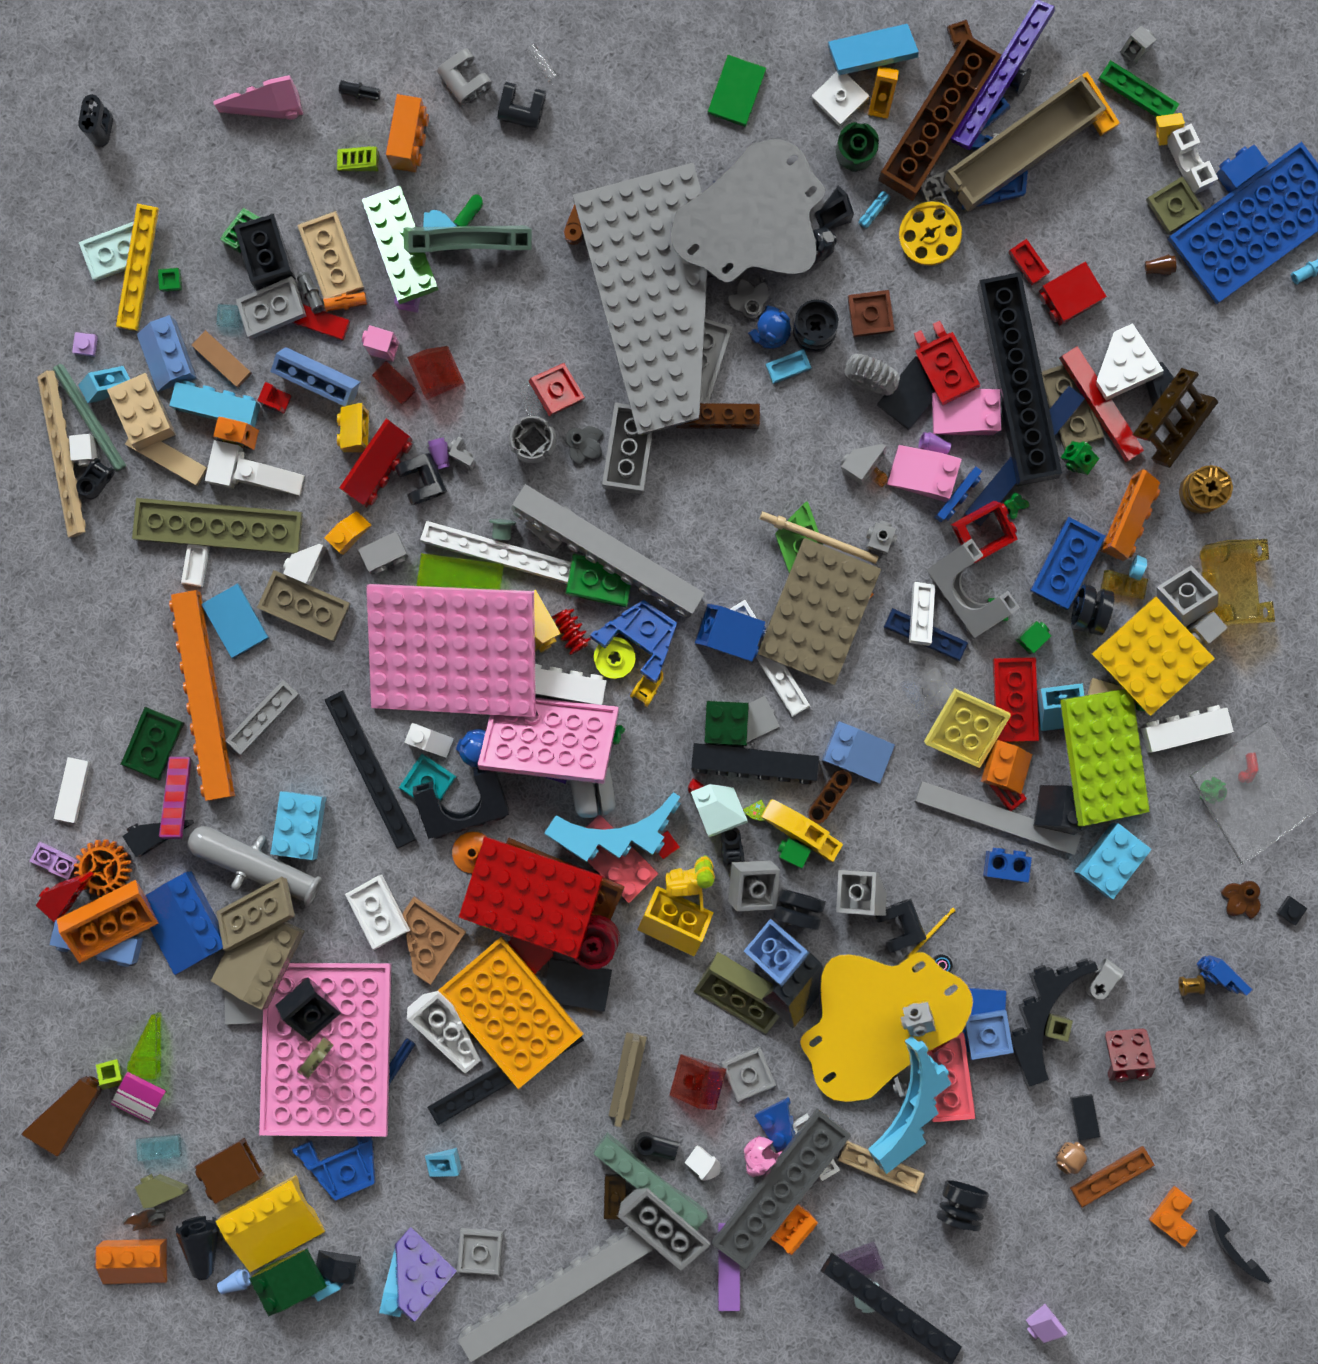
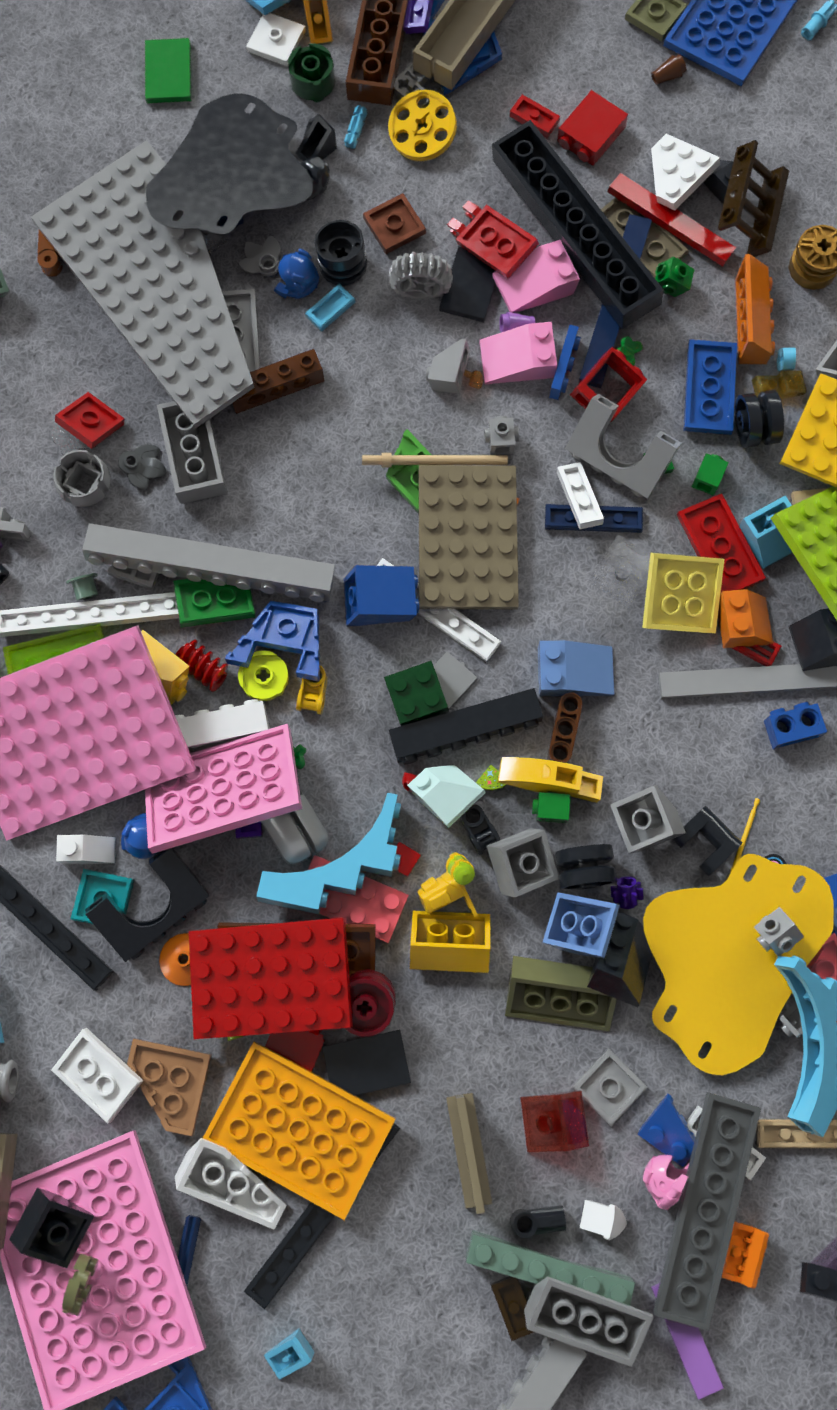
camera: 20 degrees left, 10 degrees down
(822, 939) = (627, 892): none -> dark purple gear

